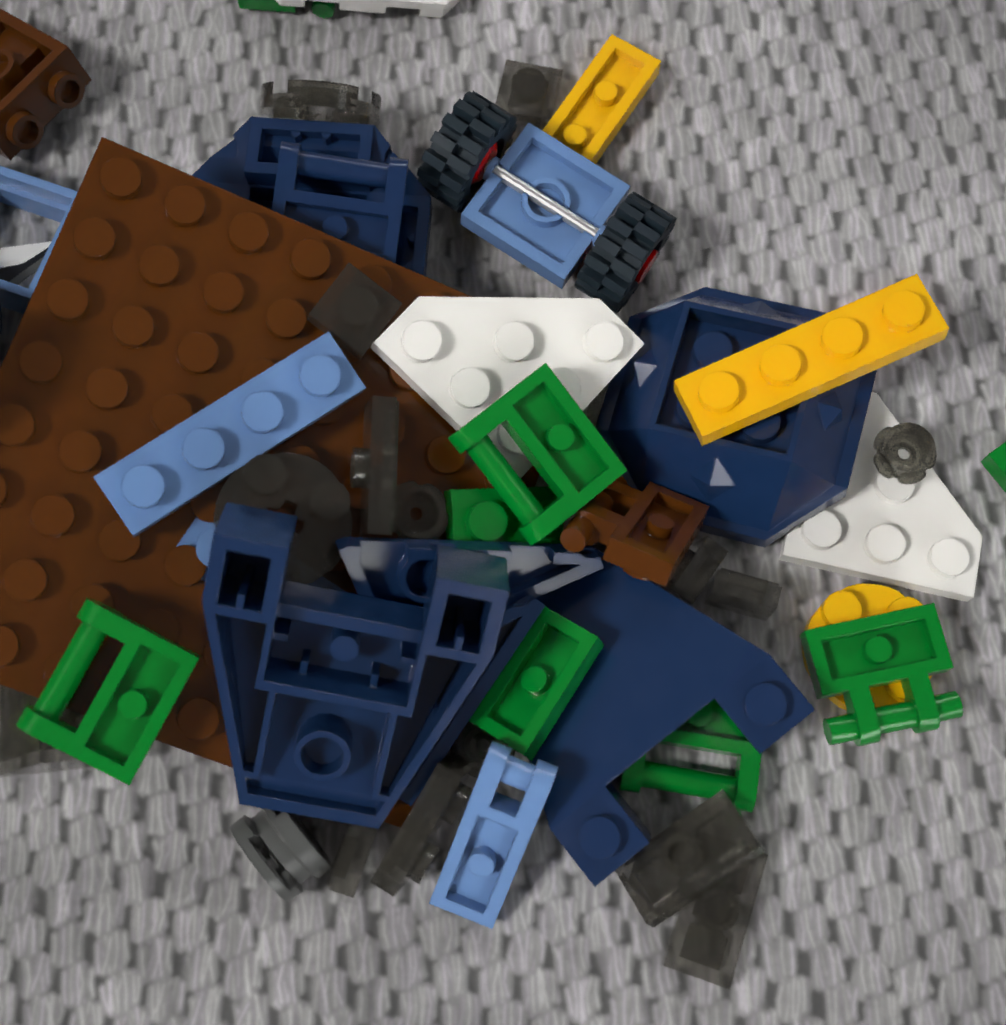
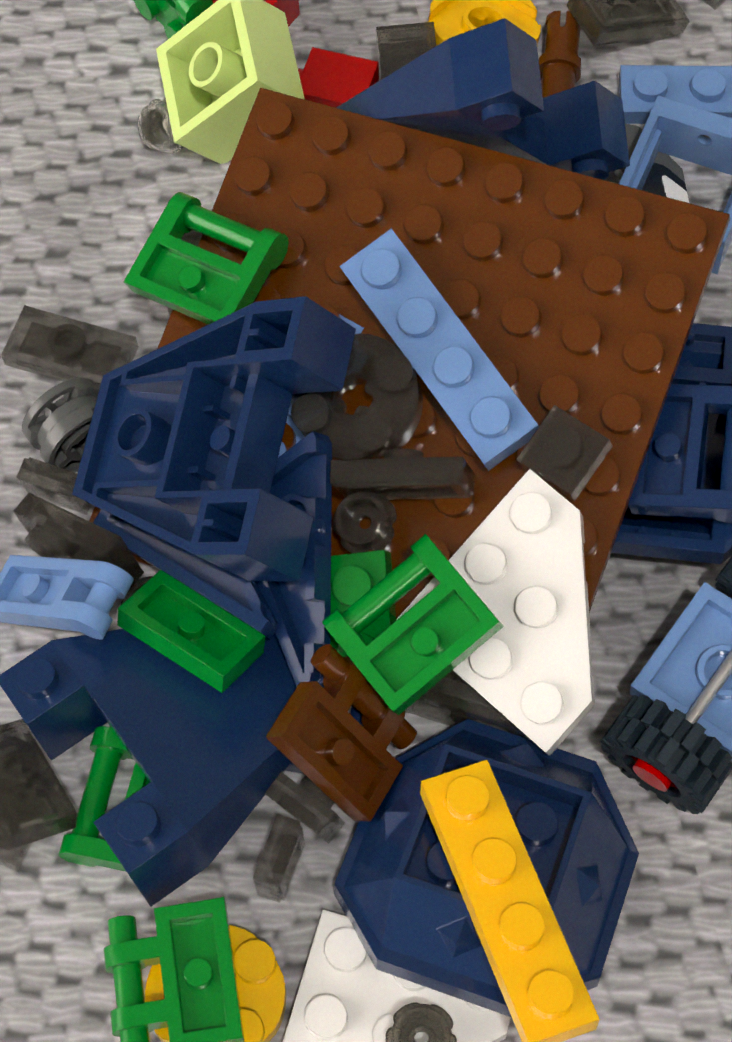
camera: 95 degrees right, 10 degrees down
(173, 870) = (65, 347): none -> clear smoke plate

